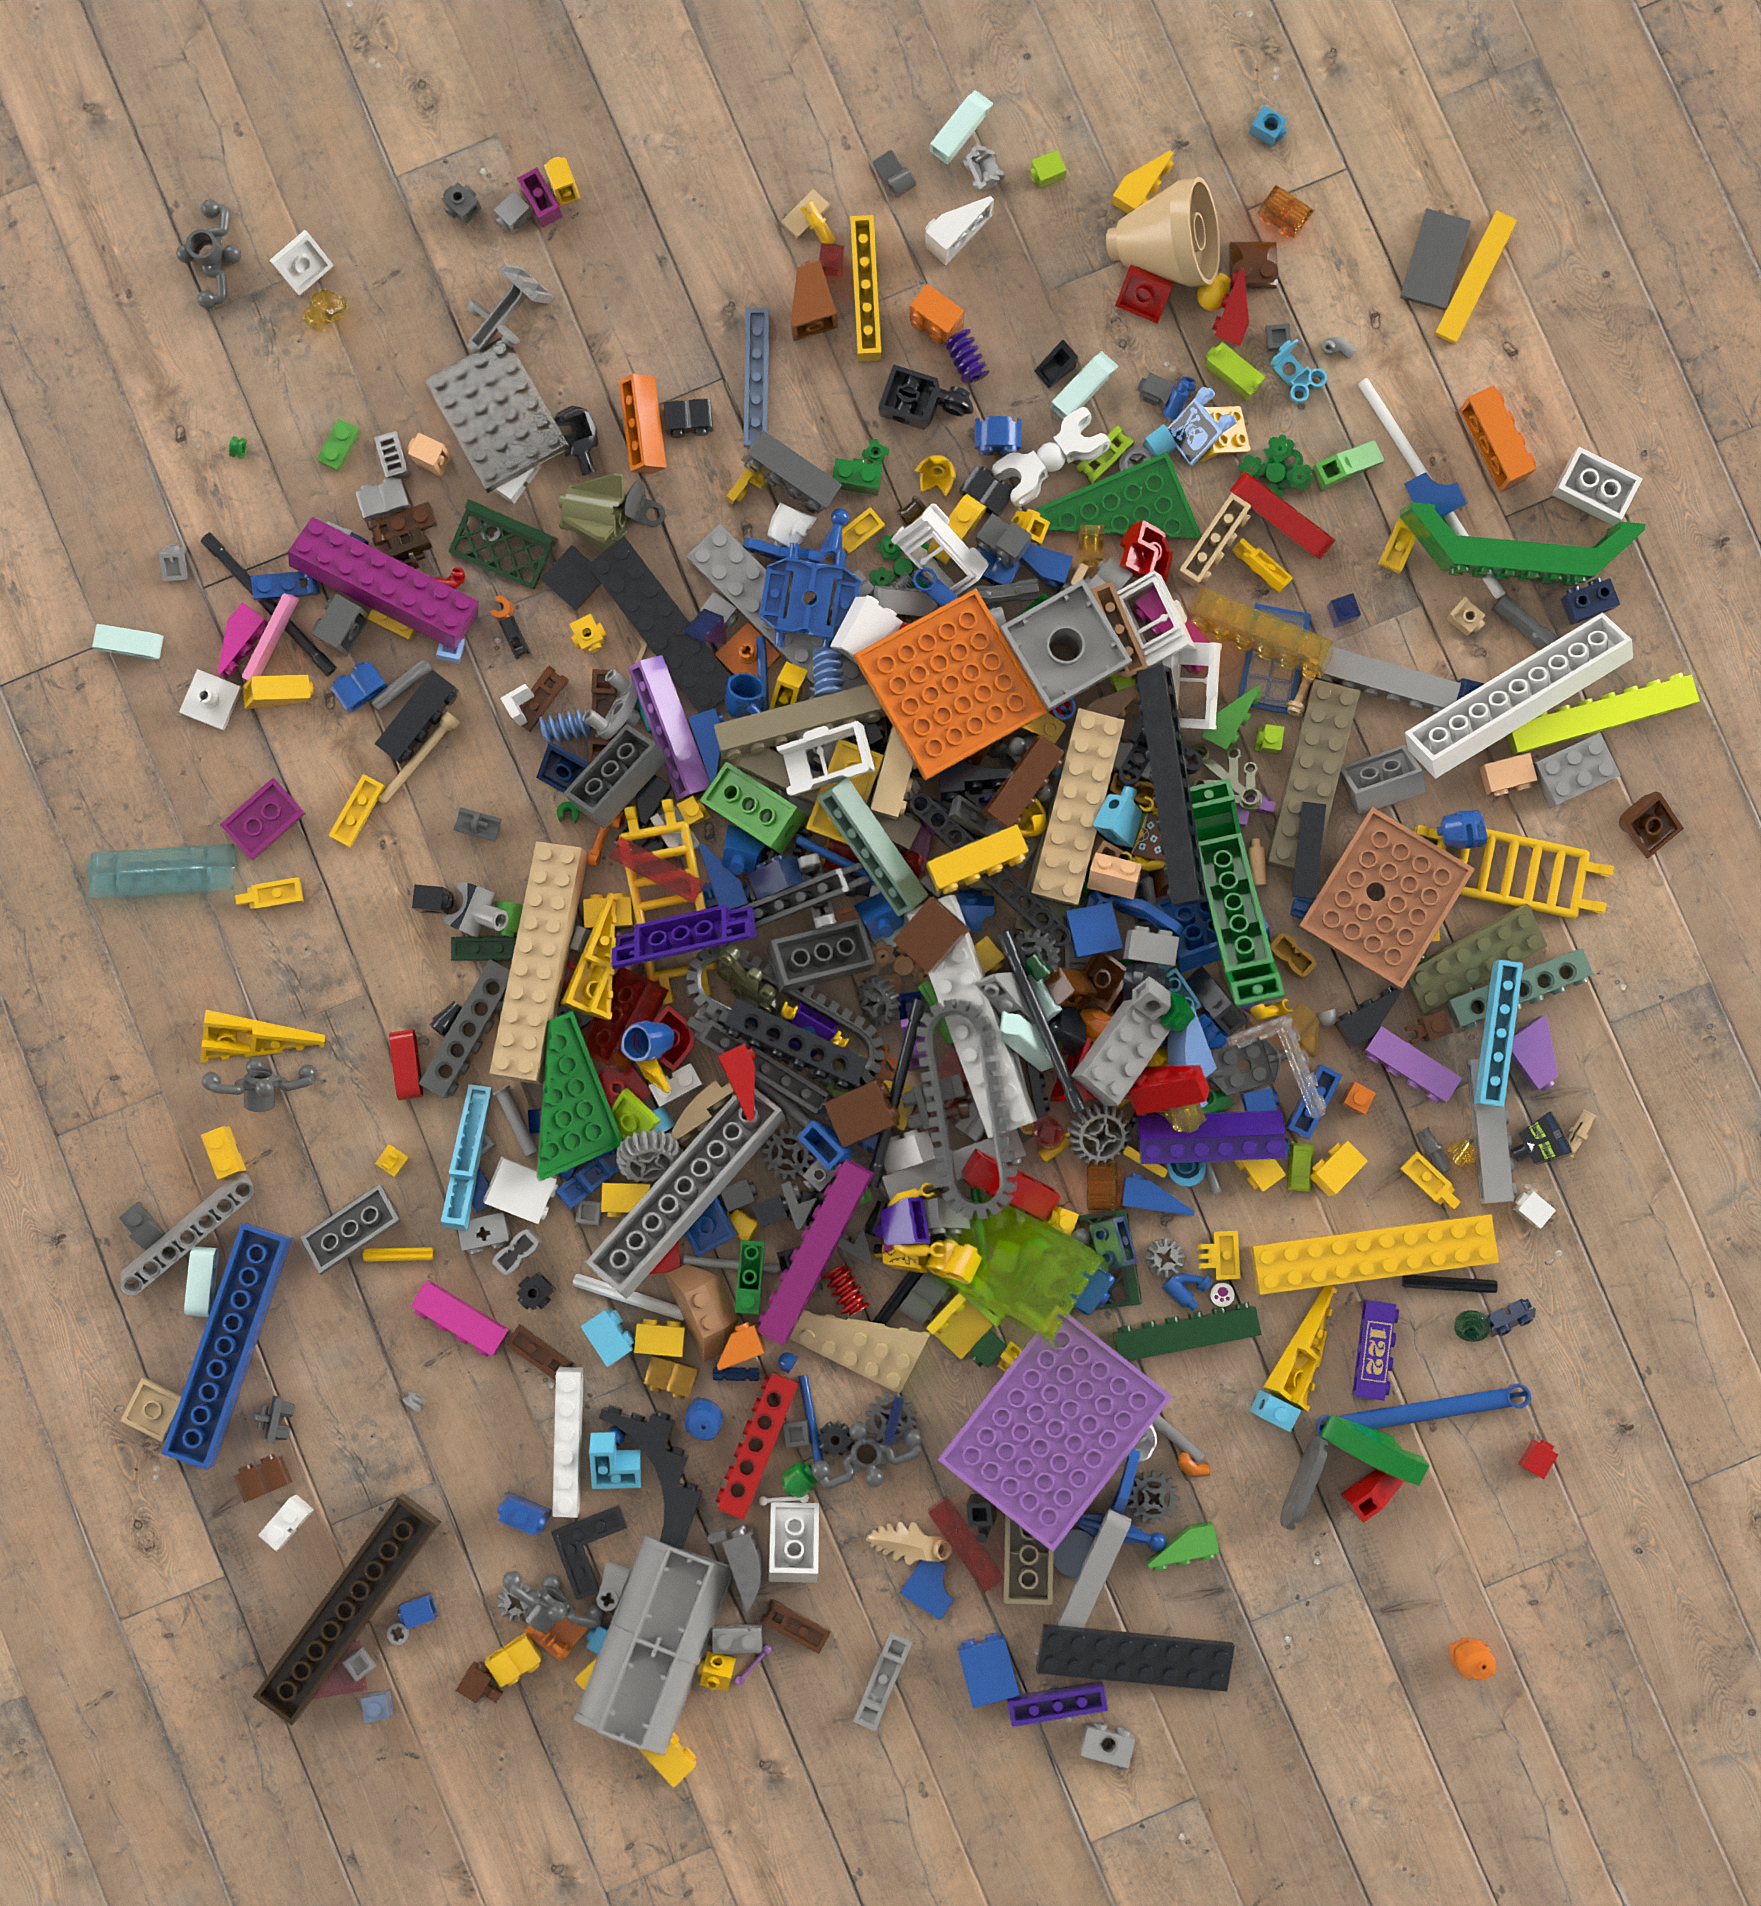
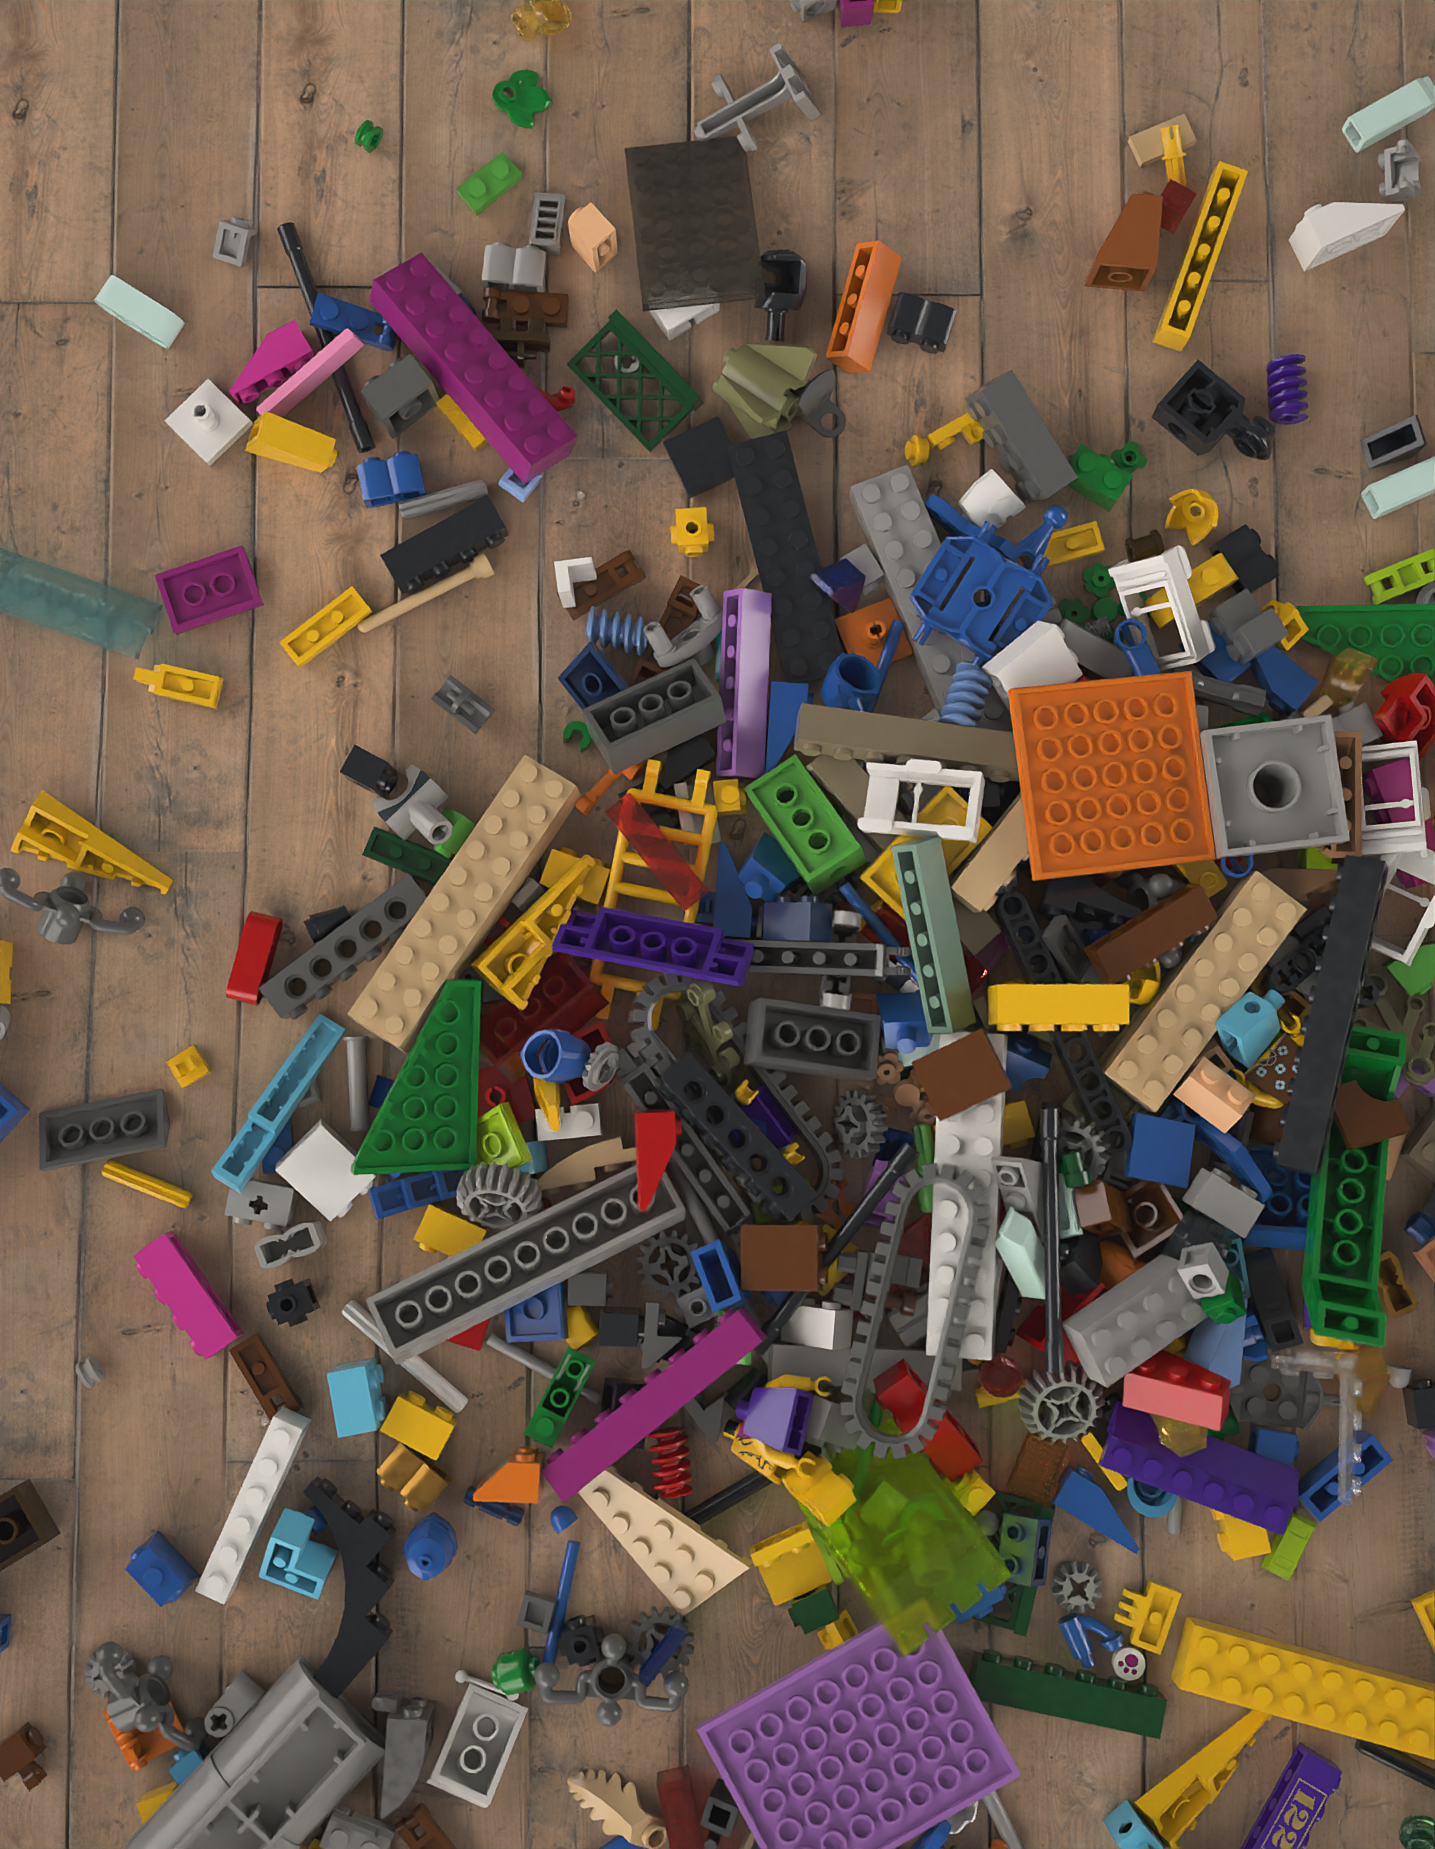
camera: 15 degrees right, 0 degrees up
(339, 373) = (526, 98): none -> green plate
(510, 627) = (602, 484): black piece -> none
(514, 1659) = (74, 1744): yellow brick -> none
(570, 1546) = (215, 1621): black plate -> none
(589, 1212) = (398, 1231): light grey tile -> none
(681, 1035) = (601, 1066): none -> light grey gear
(704, 1308) = (489, 1409): medium nougat wedge -> none
(723, 509) = (917, 450): none -> yellow plate
(727, 1500) = (430, 1670): red brick -> none
(756, 373) = (1024, 303): sand blue plate -> none
(789, 686) = (910, 694): yellow brick -> none
(896, 178) = (1286, 138): dark grey panel -> none
(924, 1298) = (762, 1513): dark grey brick -> none
(936, 315) = (1273, 322): orange piece -> none
(997, 434) = (1288, 498): blue brick -> none
(1051, 456) = (1367, 548): white piece -> none
(1225, 848) = (1367, 1119): none -> reddish brown tile
(1337, 1168) = (1337, 1569): yellow brick -> none
(1357, 1098) = (1396, 1492): orange brick -> none

